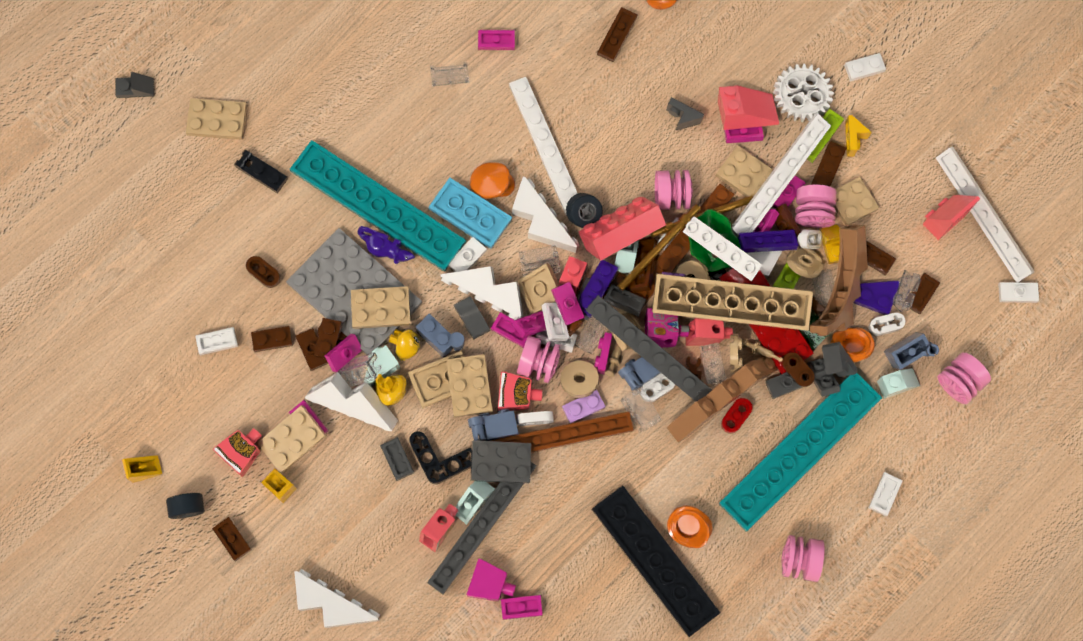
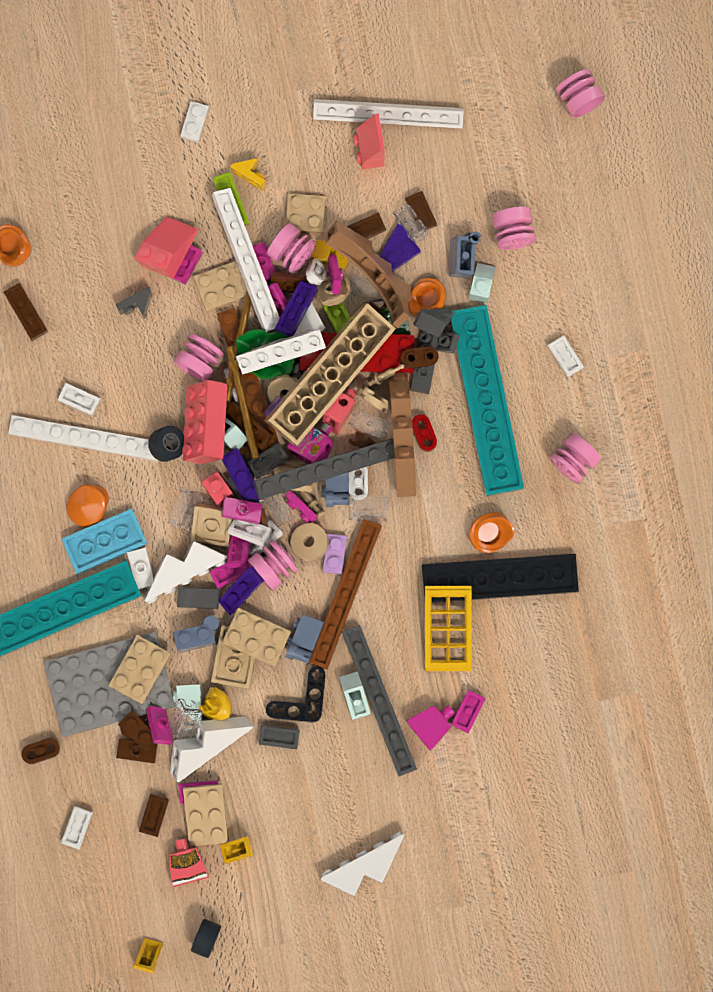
camera: 50 degrees left, 5 degrees up
(231, 539) = (258, 916): reddish brown plate -> none
(265, 397) = (154, 815): none -> reddish brown plate
(271, 339) = (105, 779): reddish brown plate -> none
(380, 246) = (84, 636): dark purple animal -> none
(406, 343) = (184, 666): yellow piece -> none
(435, 533) = (361, 743): coral torso -> none
(500, 346) = (241, 590): none -> dark purple plate
(500, 461) = (338, 652): dark grey plate -> none
(516, 392) = (287, 602): torso -> none
(534, 418) = (319, 600): white beam -> none
(544, 224) = (157, 485): white slope -> none
(574, 120) = (79, 399): none -> white plate
(613, 522) = (448, 665): none -> yellow piece
(798, 78) = (167, 184): white gear -> none
(819, 255) = (335, 274): none -> dark pink plate
(829, 164) = (262, 214): reddish brown plate -> none
(886, 319) = (431, 260): white beam -> none
(1018, 292) = (471, 132): white plate -> none

